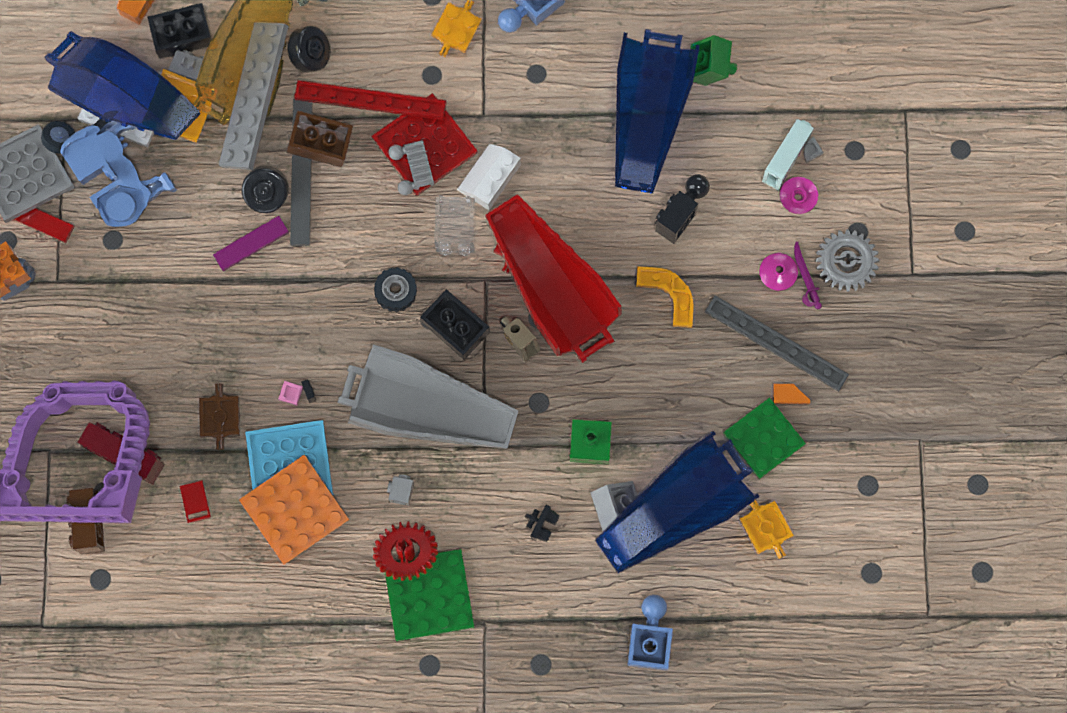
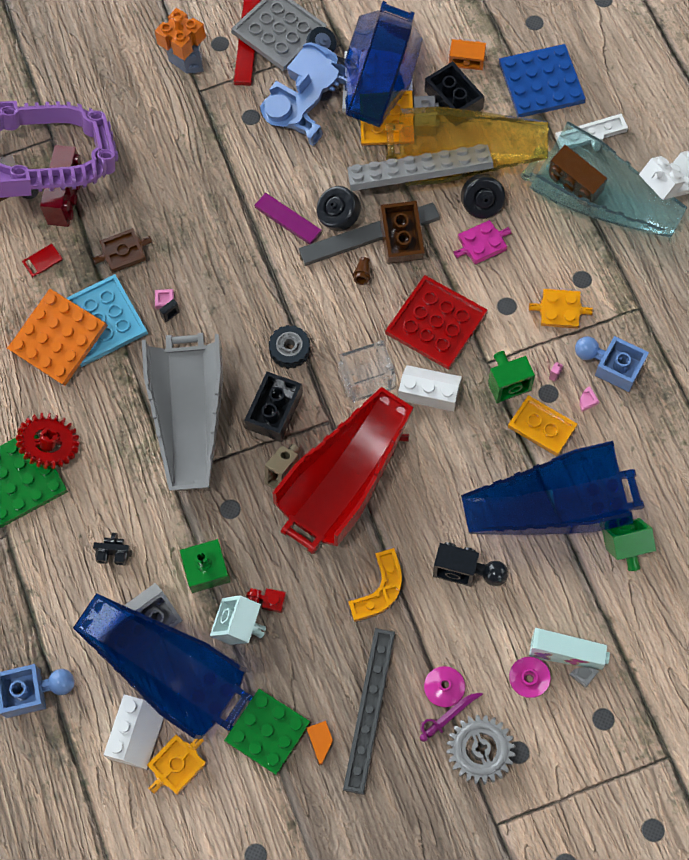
camera: 70 degrees right, 10 degrees down
(343, 193) = (362, 272): none -> reddish brown cone
(356, 67) = (482, 242): none -> dark pink plate
(370, 100) = (458, 263): red tile -> none
(400, 490) = (104, 418): light grey brick -> none
(418, 164) = (410, 322): light grey gear -> none
(513, 99) = (510, 377): none -> green brick
(519, 57) = (555, 371): none -> bright pink tile
(557, 41) = (588, 399): none -> bright pink tile
(568, 91) = (542, 425): none -> light orange plate
(643, 393) = (272, 600): none -> red plate
(657, 429) = (237, 621): none -> light aqua brick
(724, 555) = (134, 733): none -> white slope

